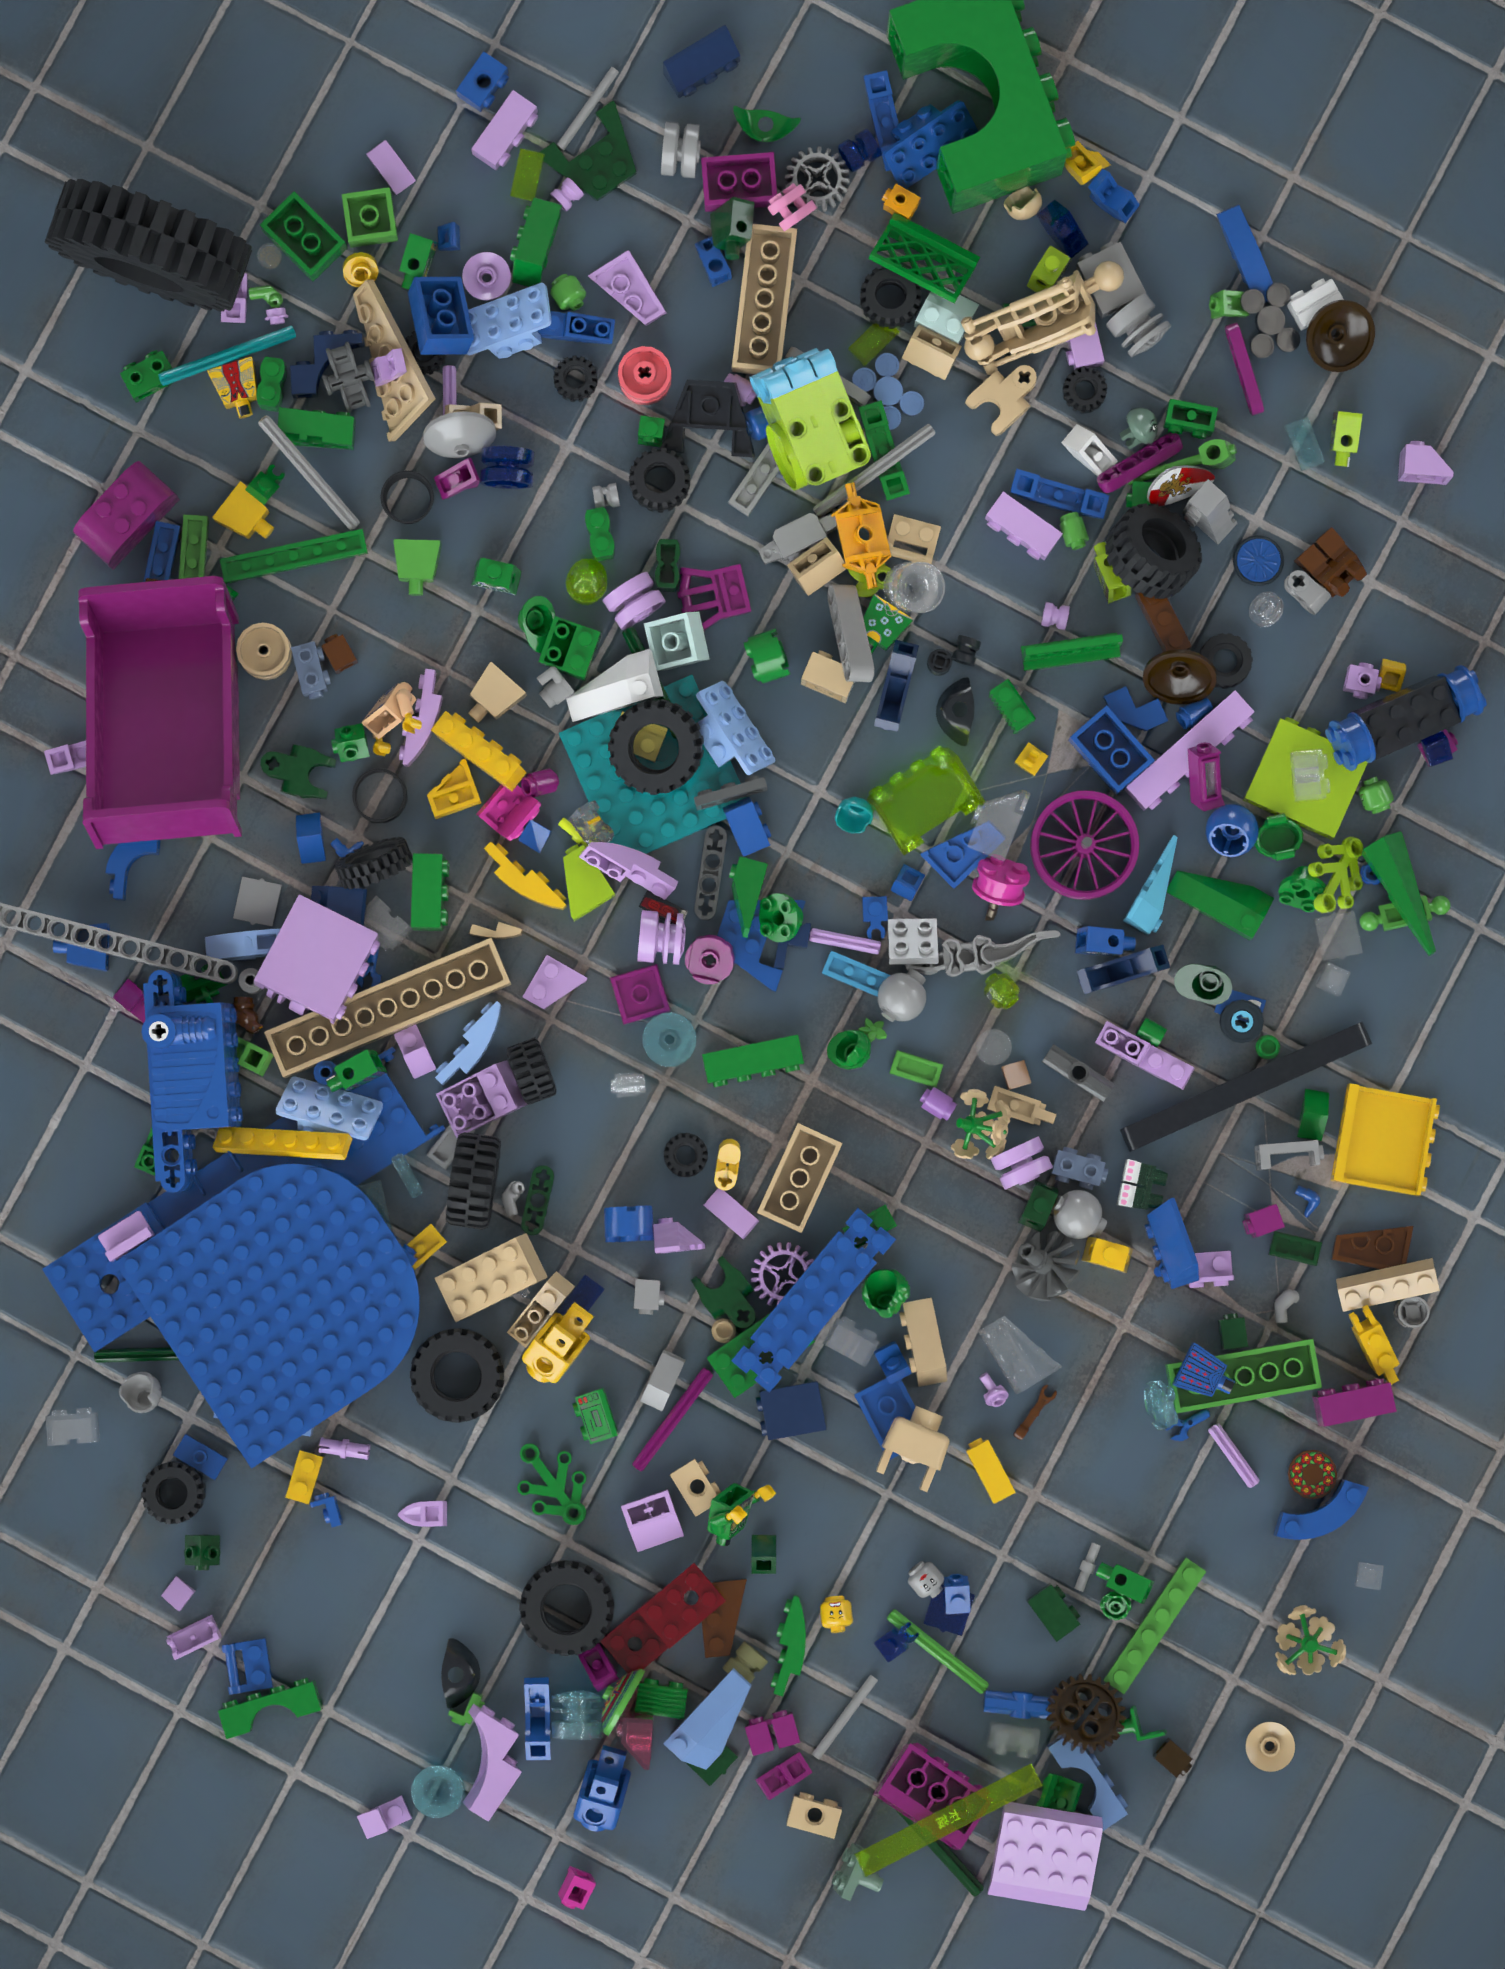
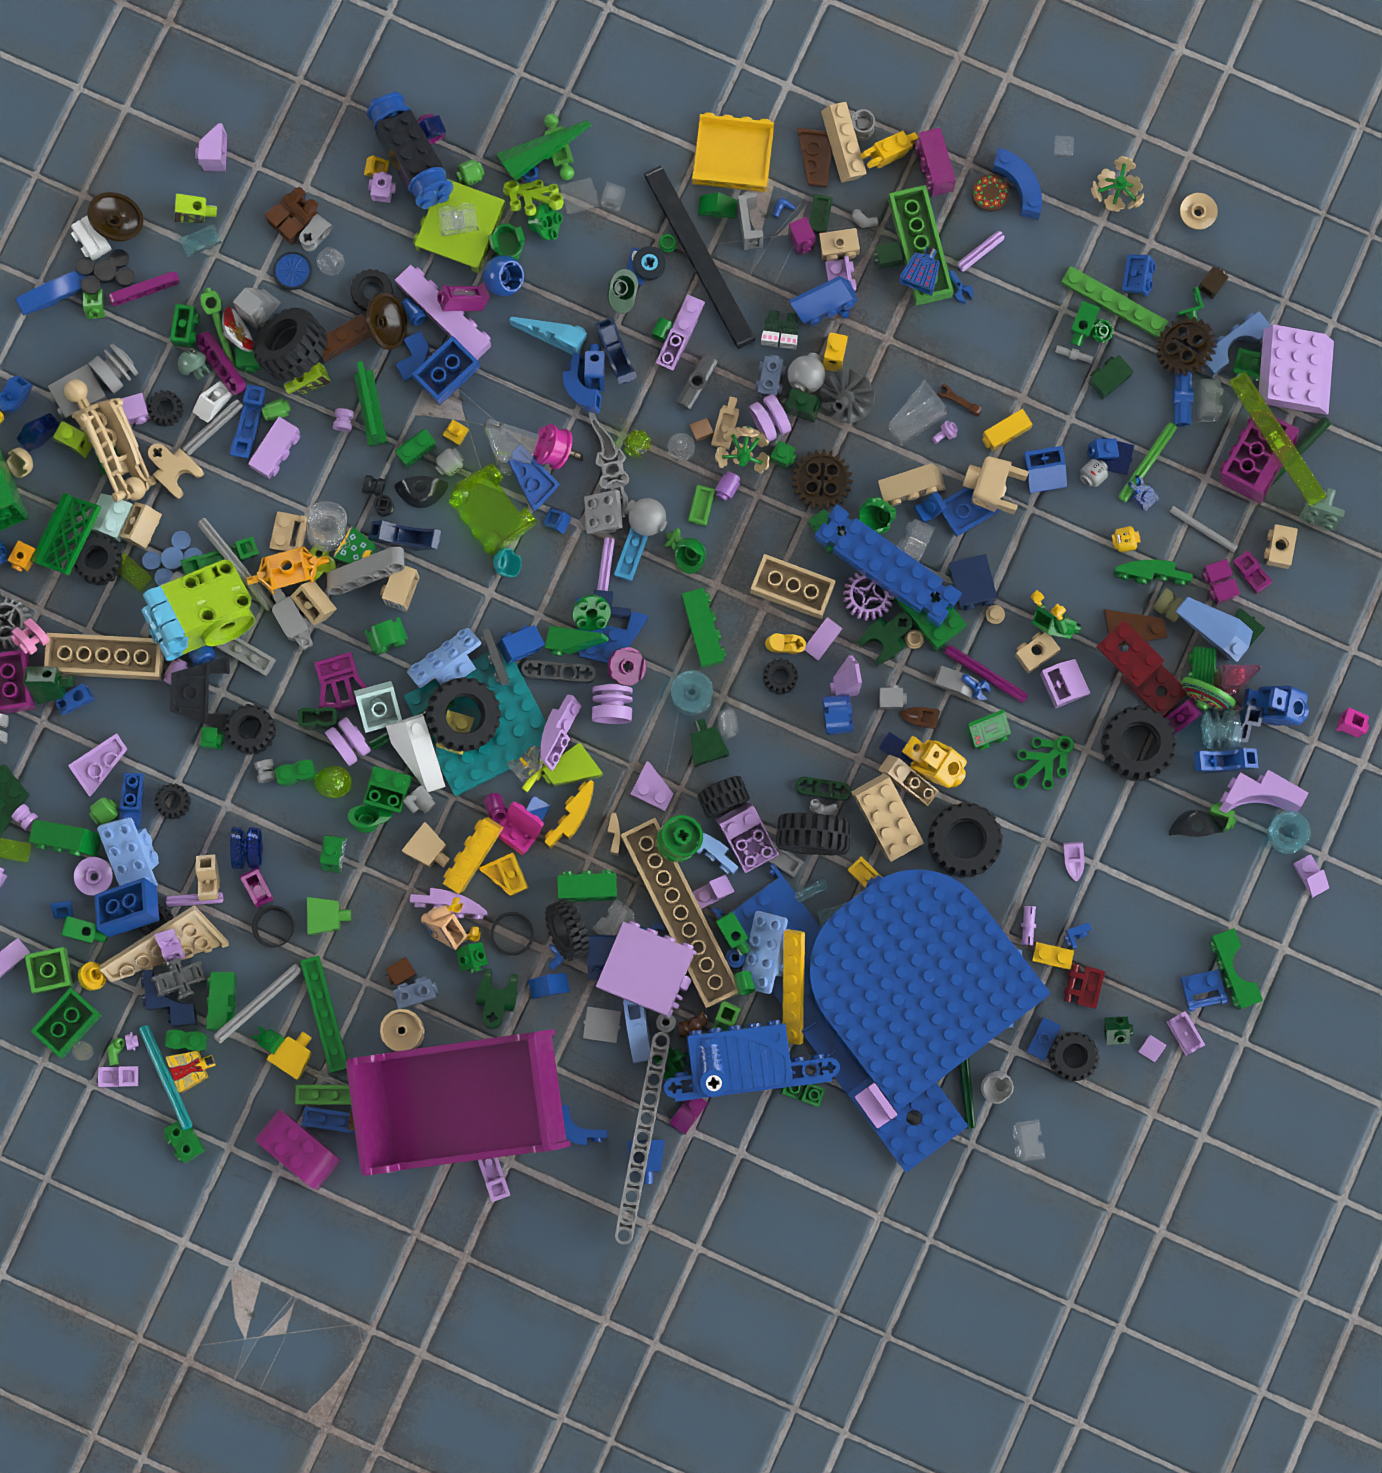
camera: 90 degrees left, 5 degrees down
(148, 244) = (80, 1136): black tyre -> none
(259, 1520) = (1090, 987): none -> dark red plate
(291, 1081) = (744, 982): none -> green beam
(459, 434) = (222, 885): light grey dish -> none
(478, 1025) = (679, 838): none -> green wheel
(589, 1753) = (1250, 716): none -> dark blue slope
(603, 1055) = (707, 744): none -> dark green torso
(621, 1332) = (921, 716): none -> reddish brown plate
(640, 994) = (657, 720): magenta tile -> none
(641, 361) = (156, 746): coral wheel -> none
(654, 1405) = (976, 687): none -> blue bar
(655, 903) = (585, 712): sticker -> none
(749, 1437) = (995, 614): none -> tan plate
(763, 1548) = (1084, 596): dark green brick -> none
(875, 912) = (581, 543): blue plate -> none
(933, 1516) = (1045, 469): none -> slope
(942, 1203) = (805, 478): none -> dark brown gear
(974, 1178) = (783, 455): none -> green brick
(991, 748) = (449, 462): none -> light grey head
(1056, 449) = (212, 427): none -> light grey axle
(1080, 915) = (584, 397): none -> blue arch
(1084, 844) = (521, 387): magenta wheel -> none
(1159, 1403) = (946, 304): clear light blue plate -> none
(1189, 1660) = (1138, 274): none -> blue bracket
(1226, 902) = (558, 280): green wedge -> none
(1251, 1269) = (839, 244): none -> tan brick

